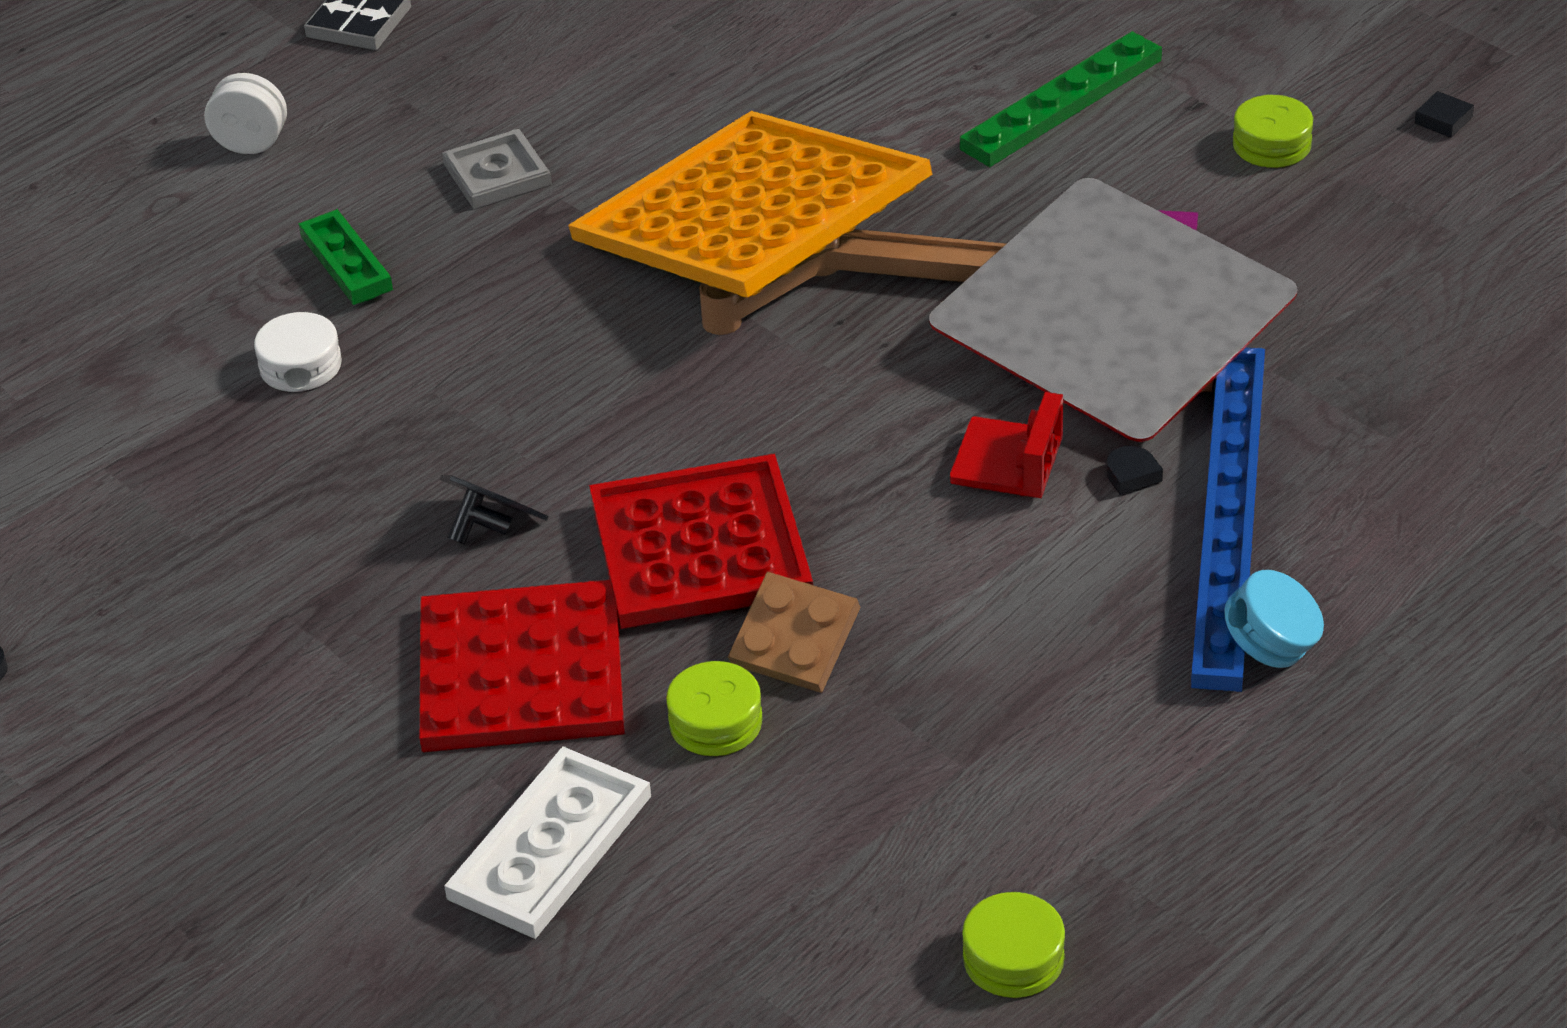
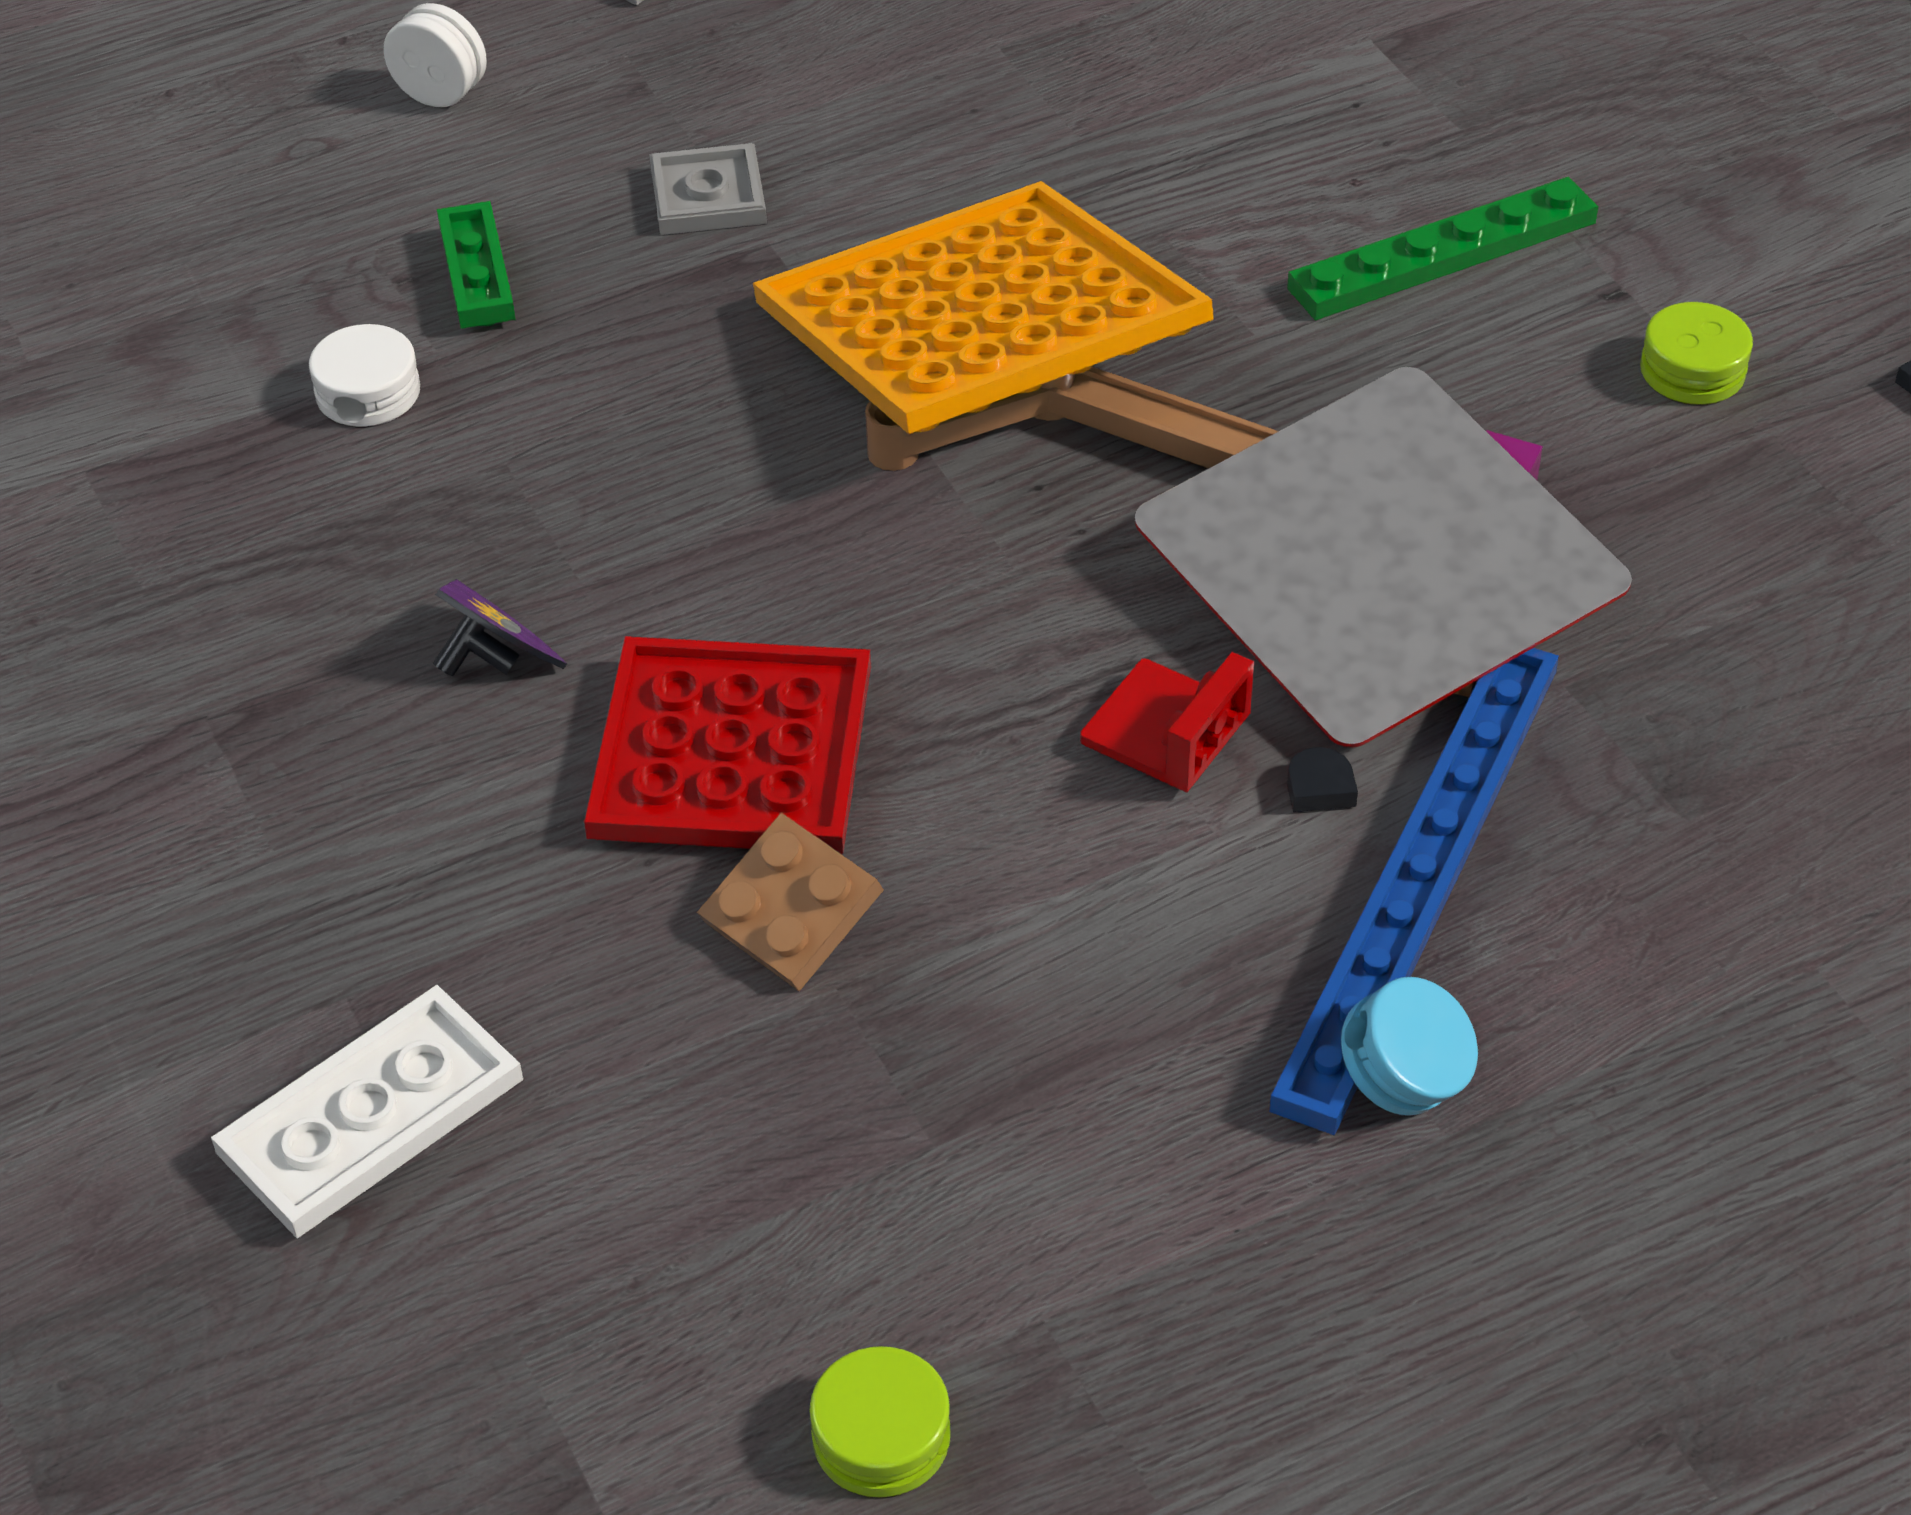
camera: 15 degrees right, 5 degrees up
(520, 666) = (442, 859): red plate -> none
(714, 708) = (648, 980): lime head -> none

